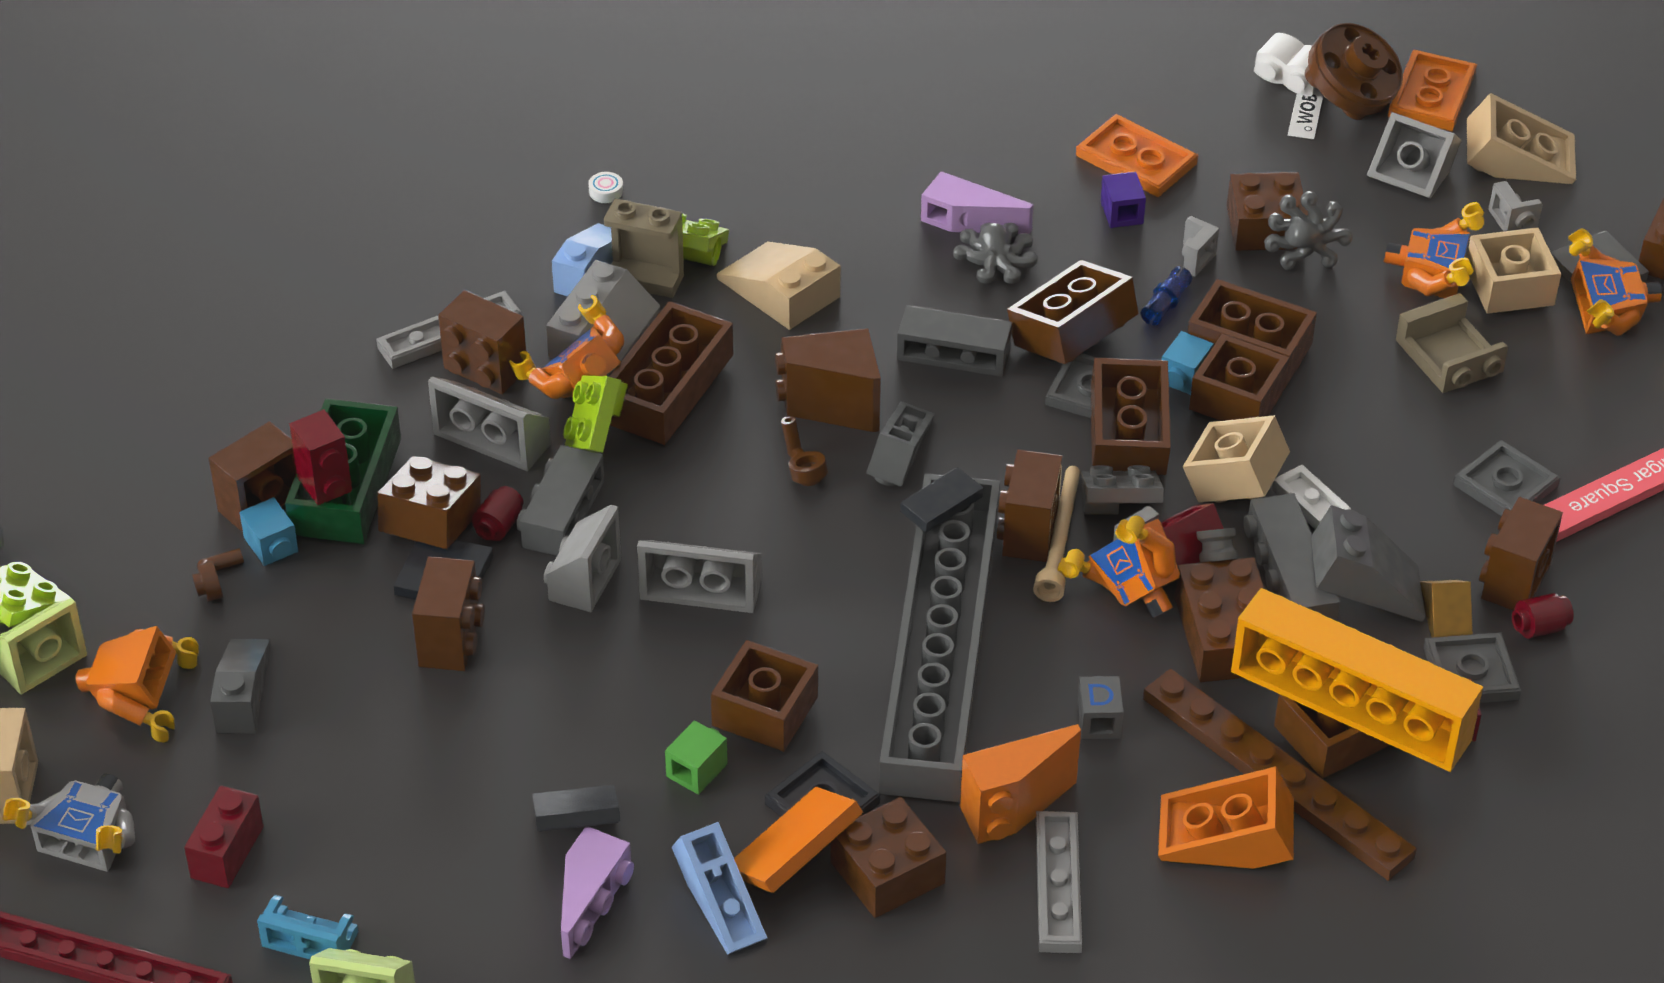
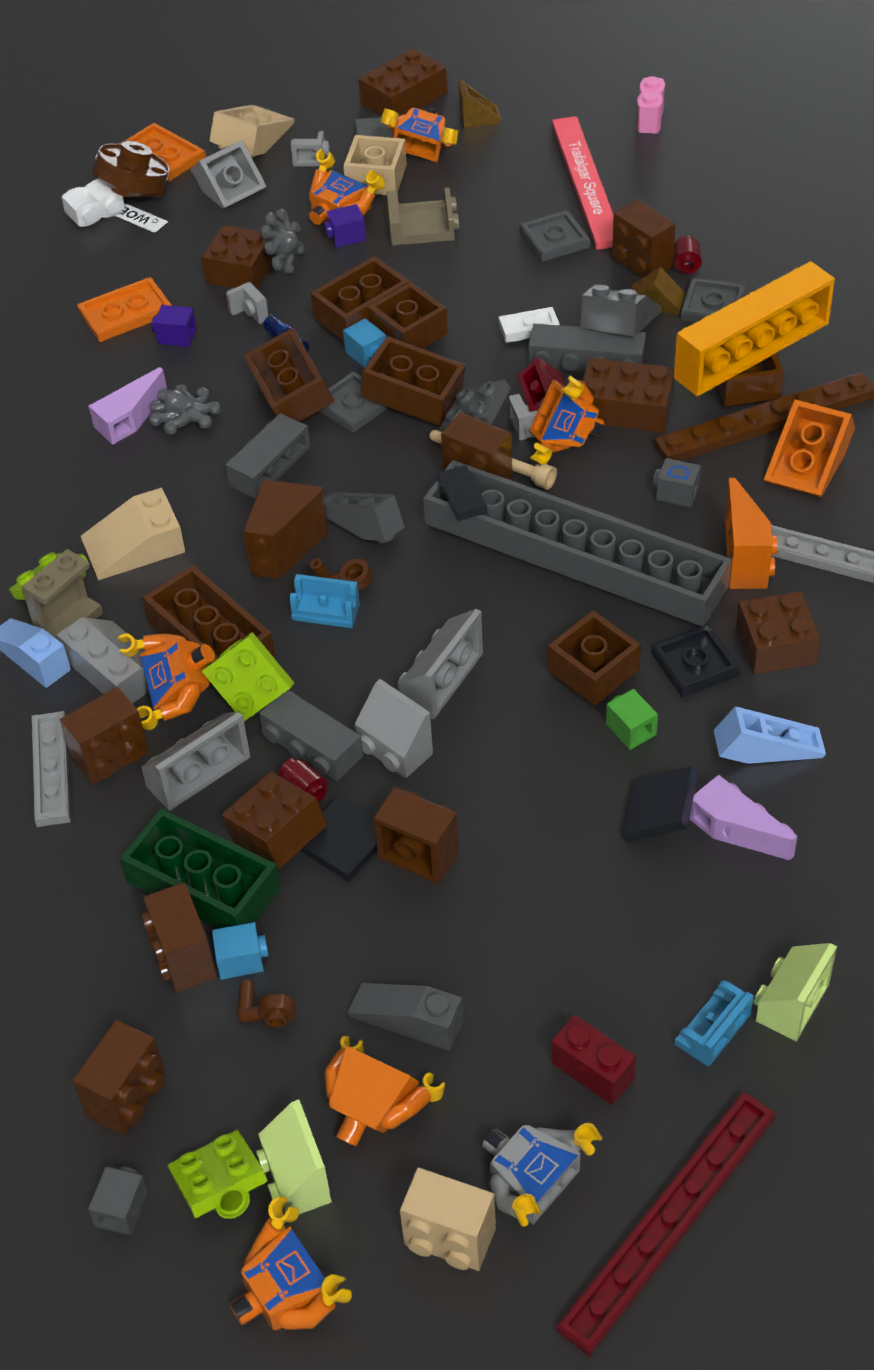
camera: 65 degrees left, 5 degrees up
(86, 488) = (120, 1078): none -> reddish brown brick
(320, 457) = (226, 860): dark red brick -> none
(755, 456) = (324, 601): none -> dark azure hinge
(796, 838) = (751, 671): orange tile -> none
(1217, 545) = (568, 366): dark grey wheel -> none
(1236, 459) = (487, 339): tan brick -> none
(1388, 283) = (345, 226): none -> dark purple brick

